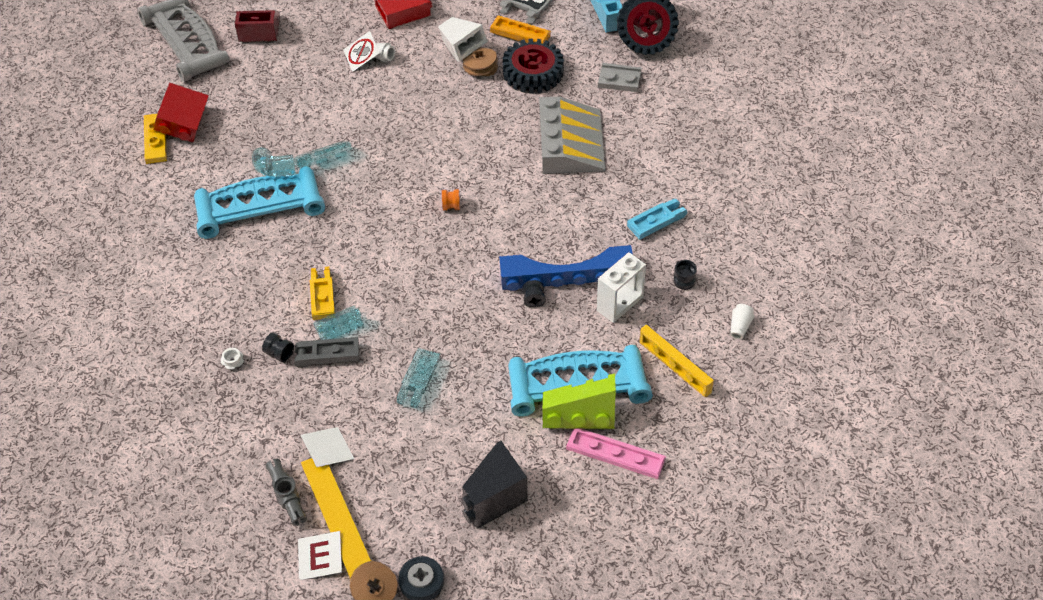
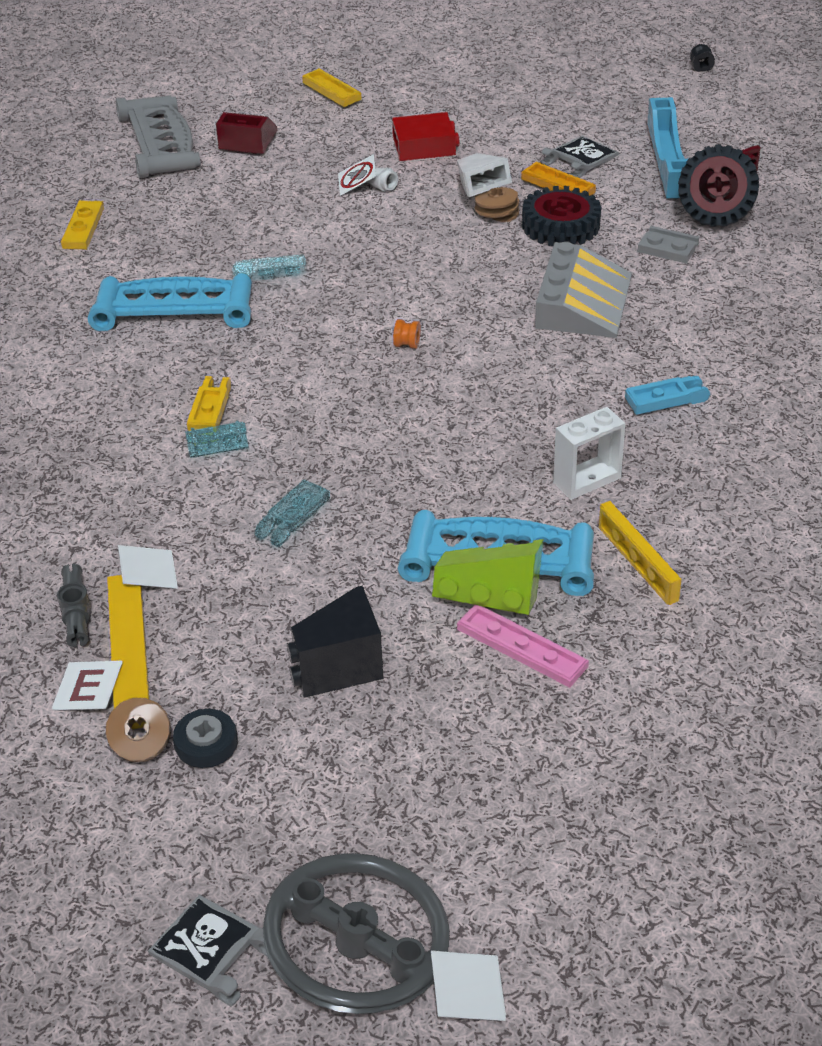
camera: 15 degrees right, 10 degrees down
(180, 112) = (120, 200): red brick -> none
(232, 353) = (72, 452): white plate -> none
(273, 165) = (206, 264): clear light blue cylinder -> none
(278, 347) = (132, 449): black wheel -> none
(326, 351) = (190, 465): dark grey plate -> none
(518, 269) = (471, 423): blue arch -> none
(533, 293) = (475, 447): black wheel -> none
(685, 274) = (683, 459): black wheel -> none
(741, 320) = (744, 523): white cone -> none

